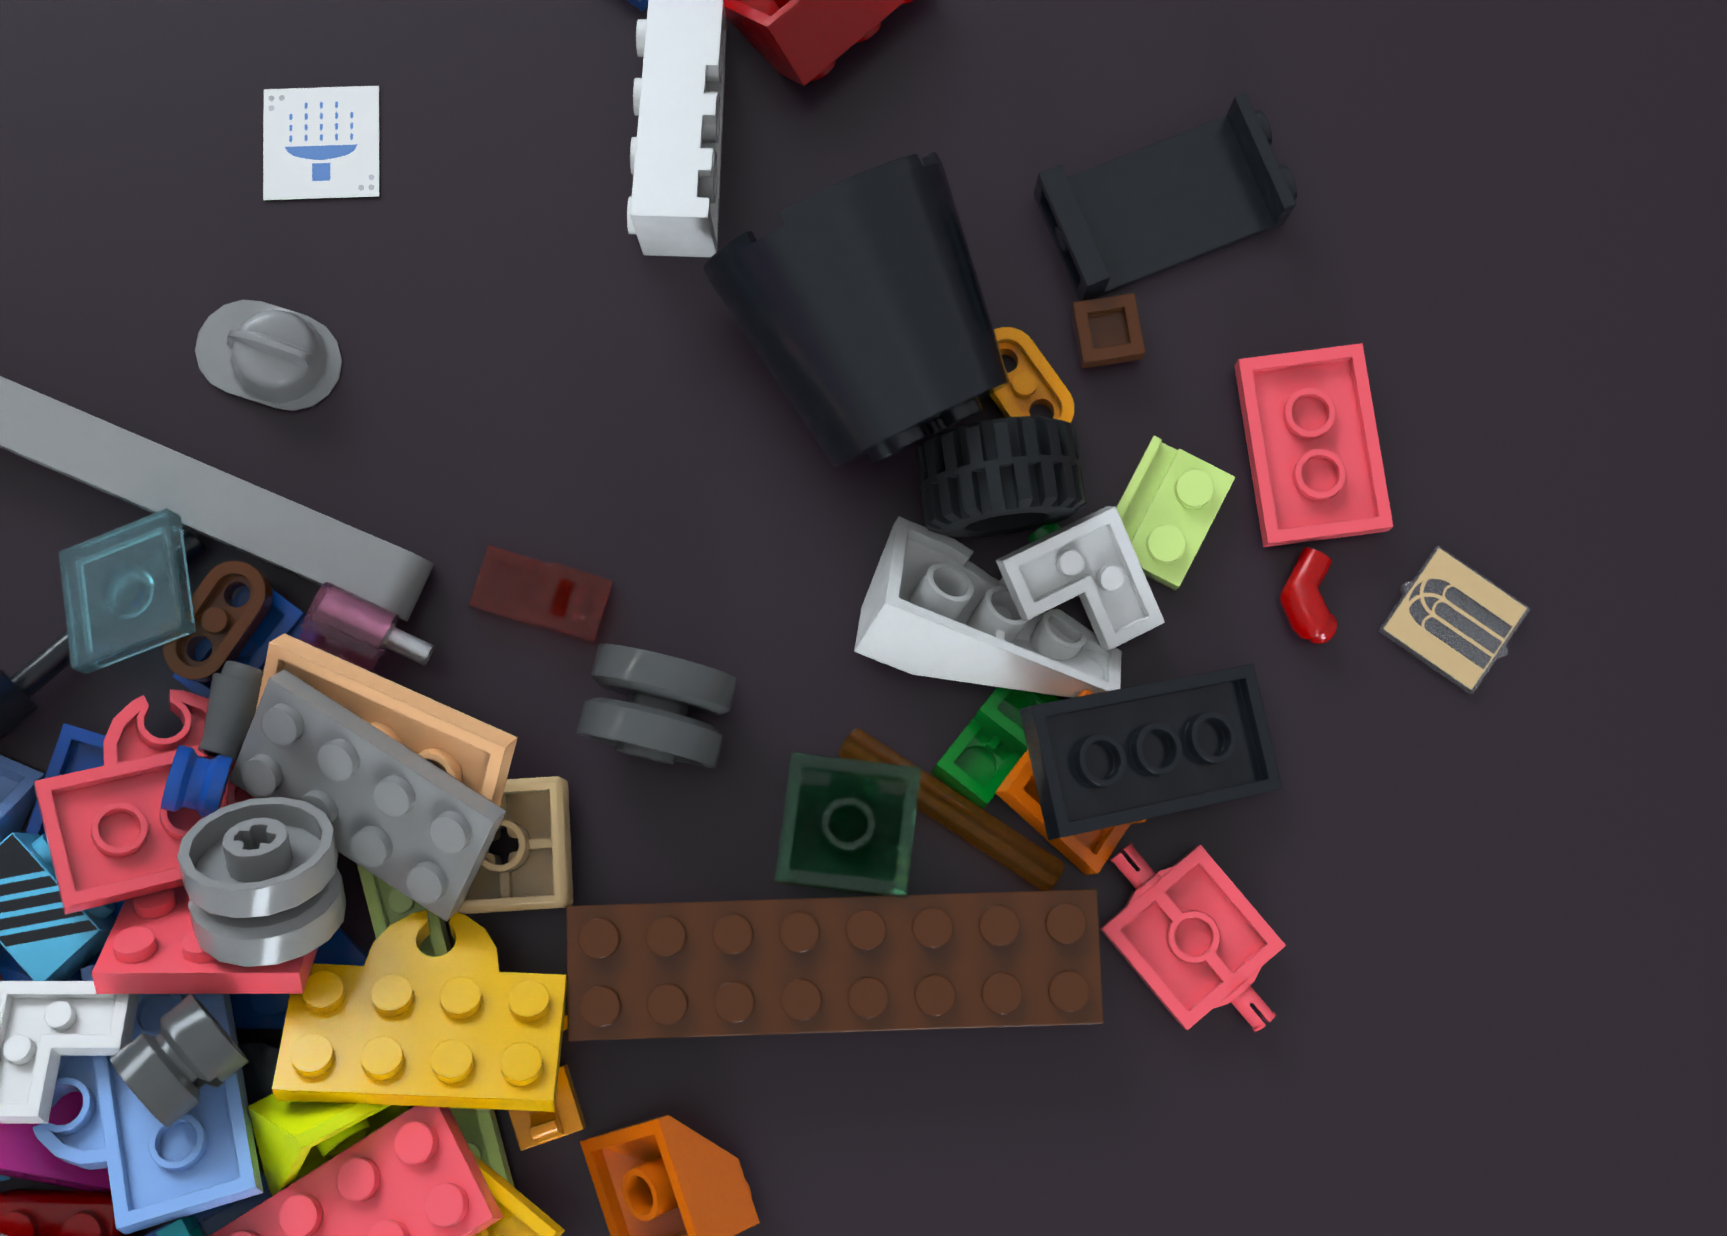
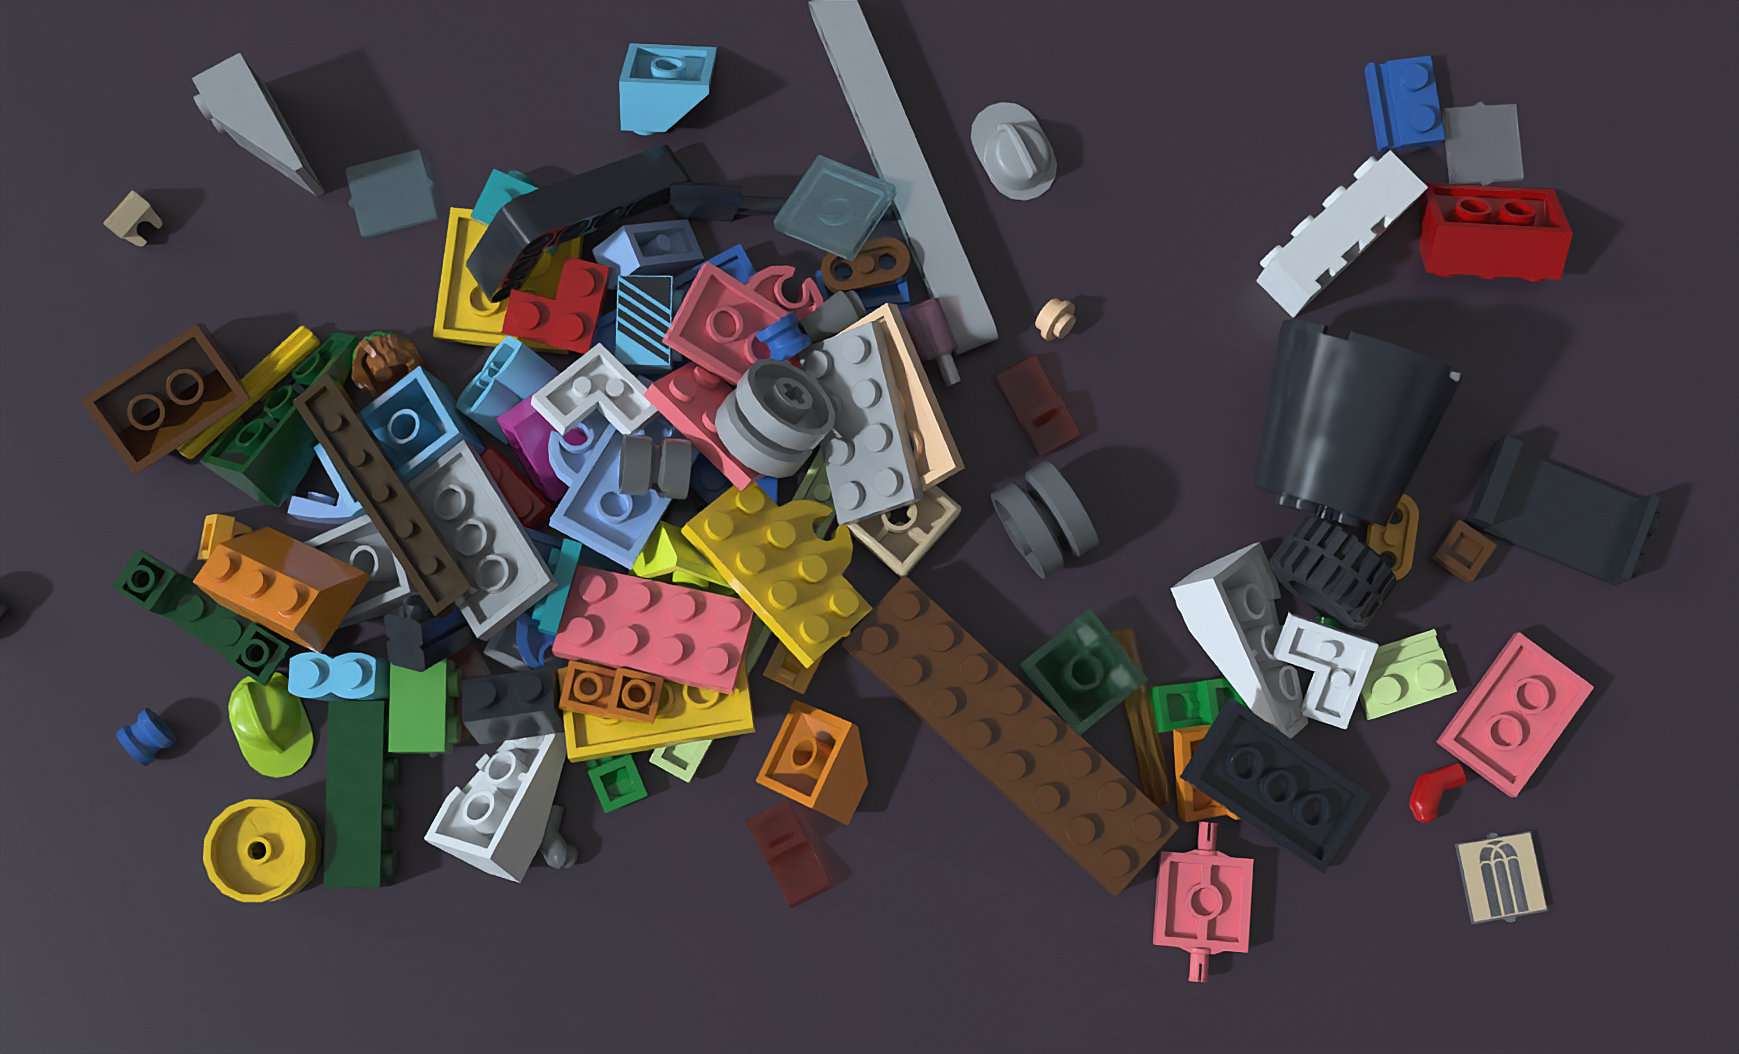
camera: 45 degrees right, 0 degrees up
(321, 143) = (1144, 65): white sticker -> none
(475, 486) = (1056, 319): none -> light nougat plate

